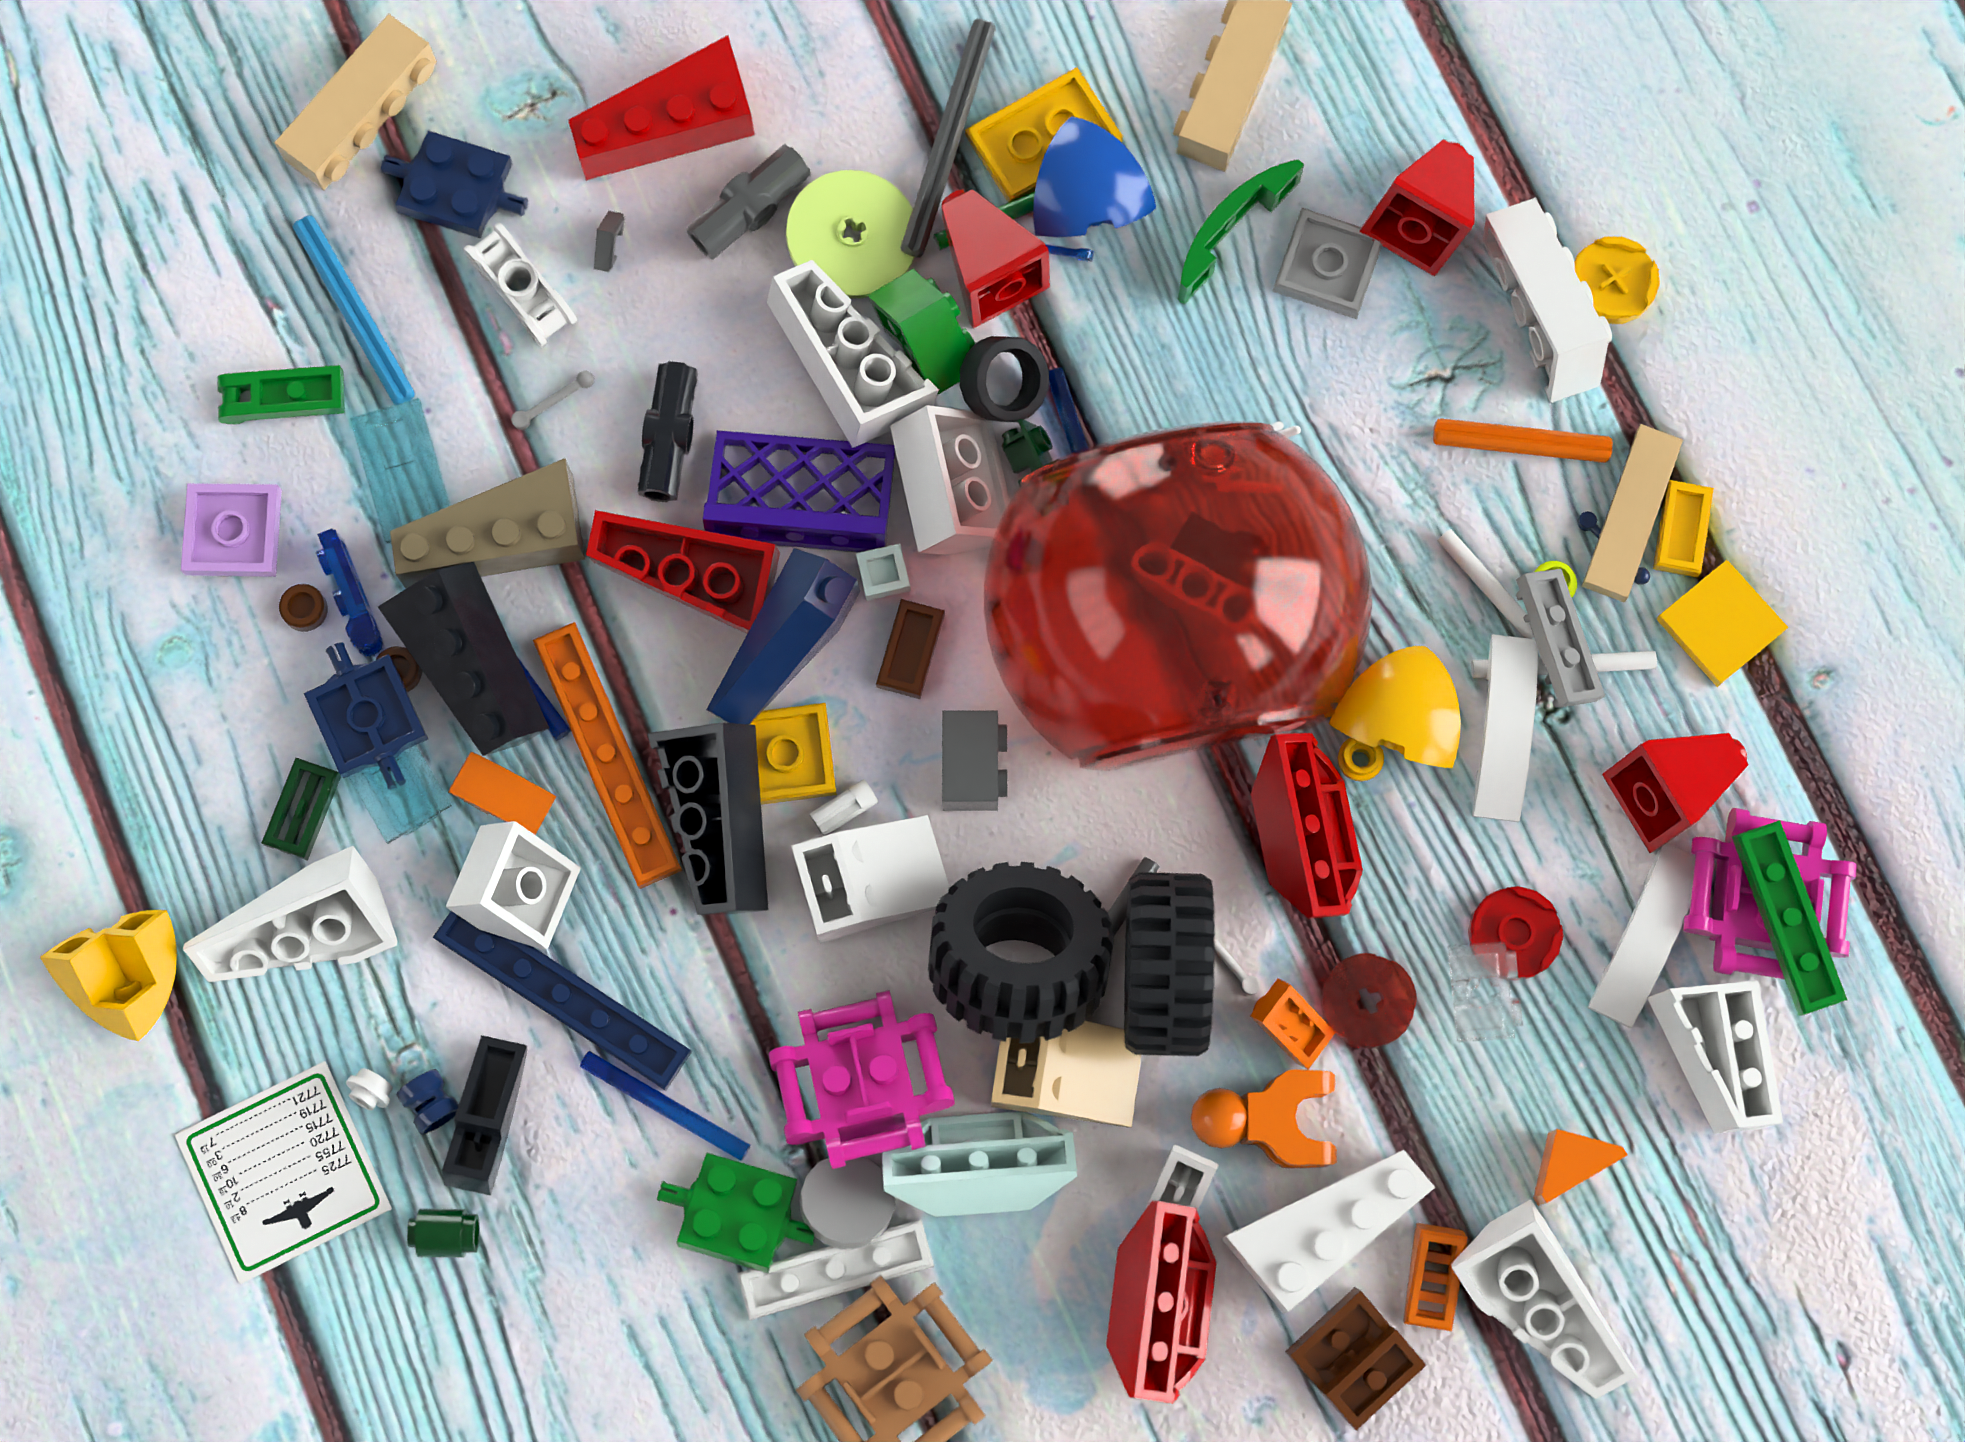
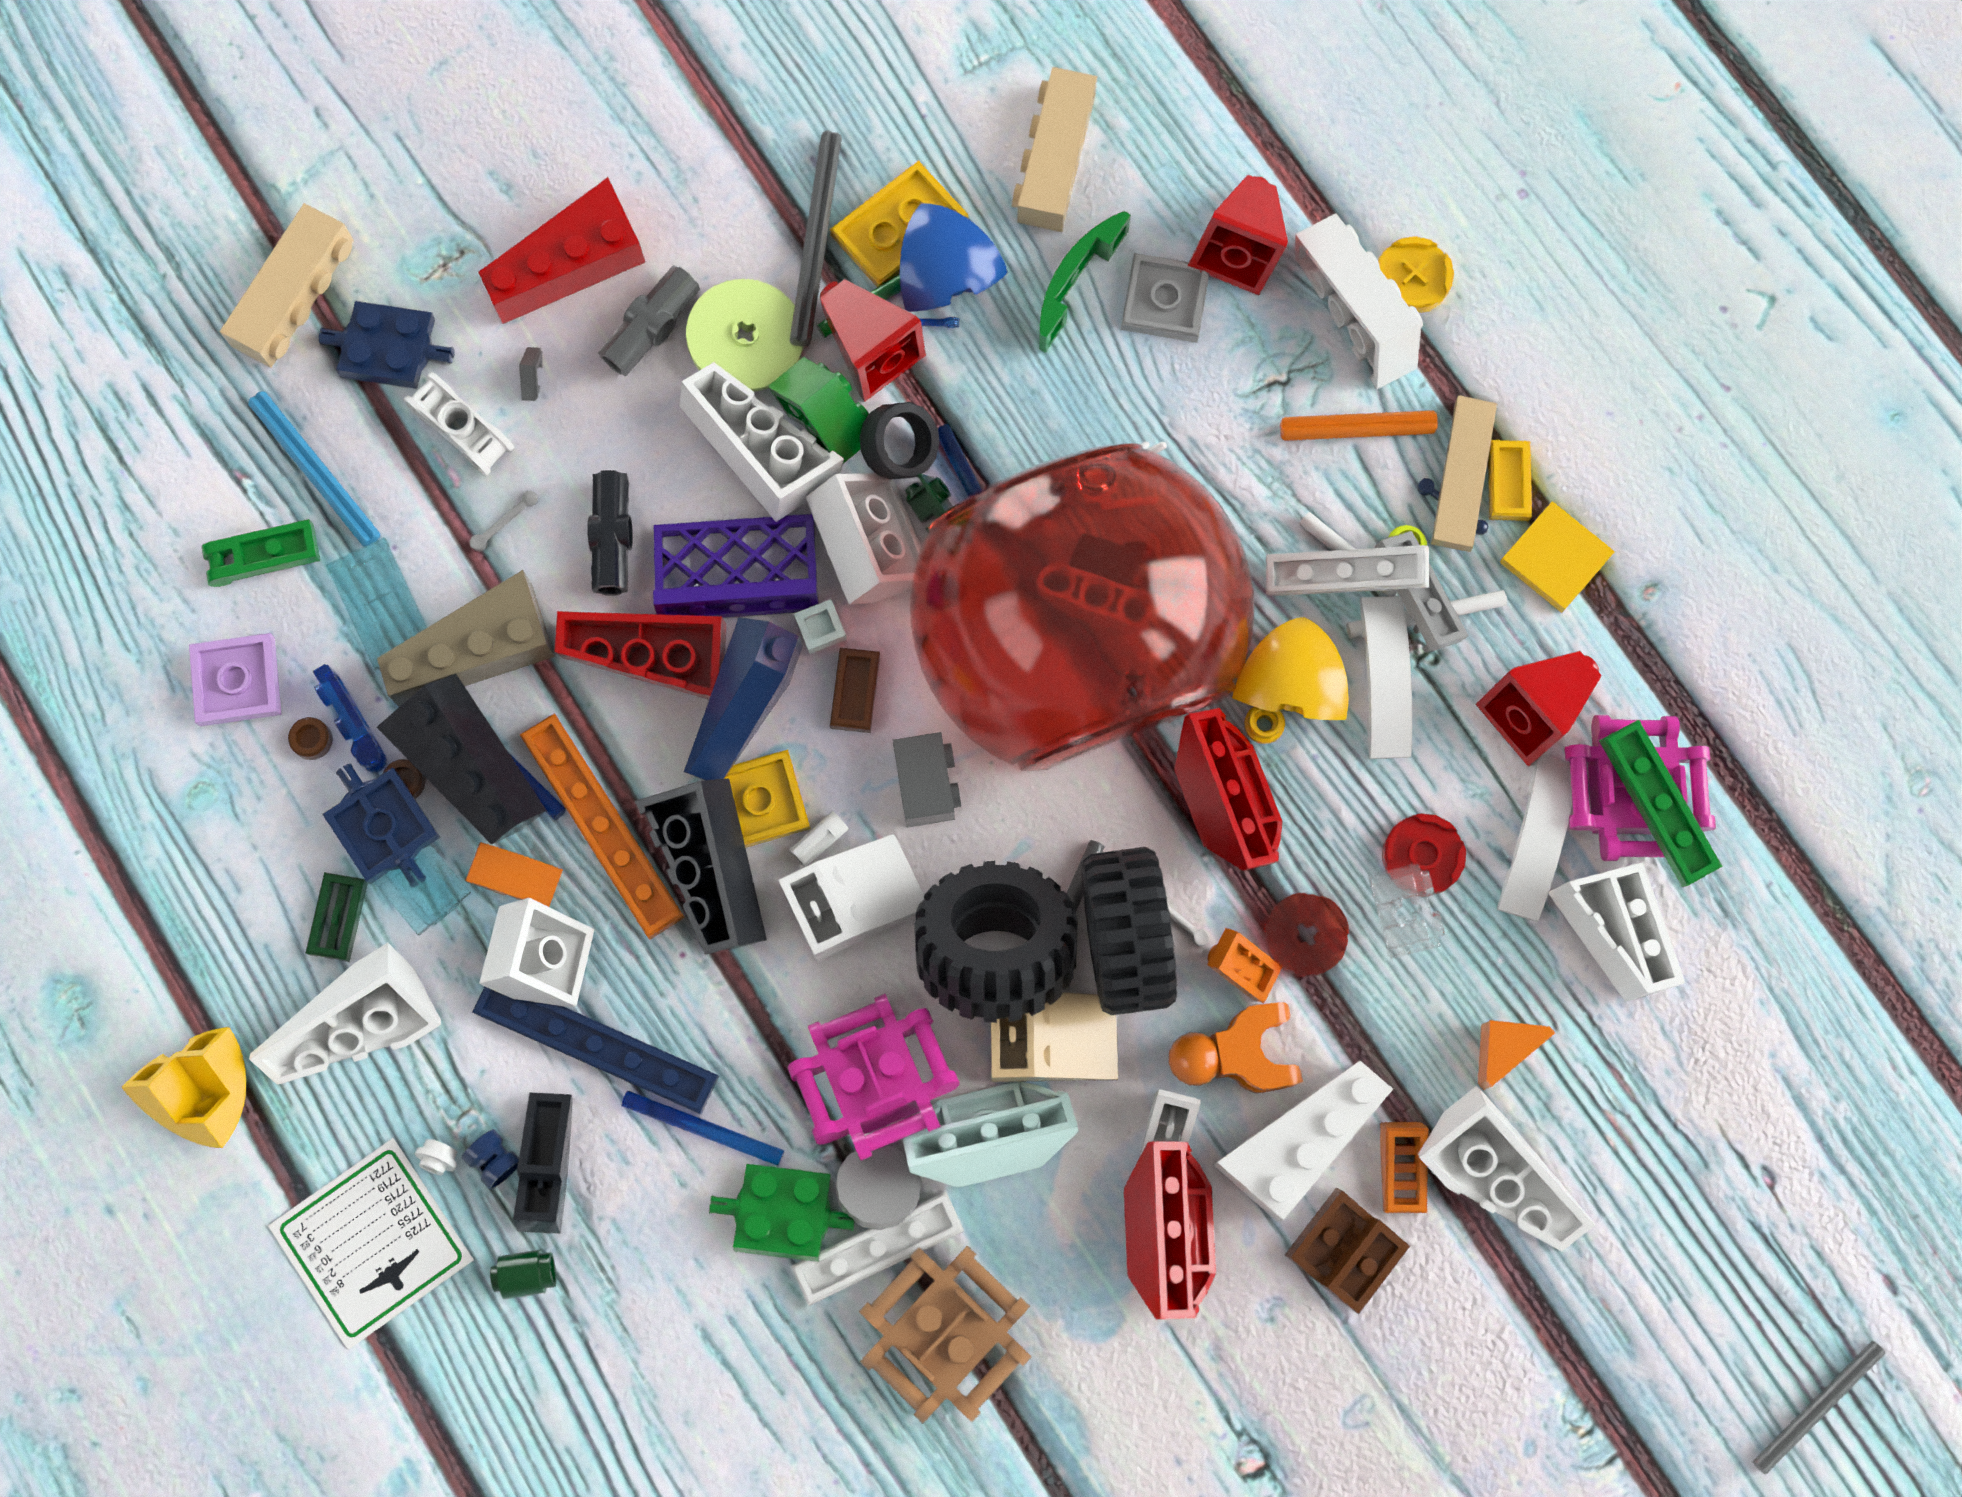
camera: 10 degrees left, 0 degrees up
(1481, 602) = (1347, 570): none -> white tile

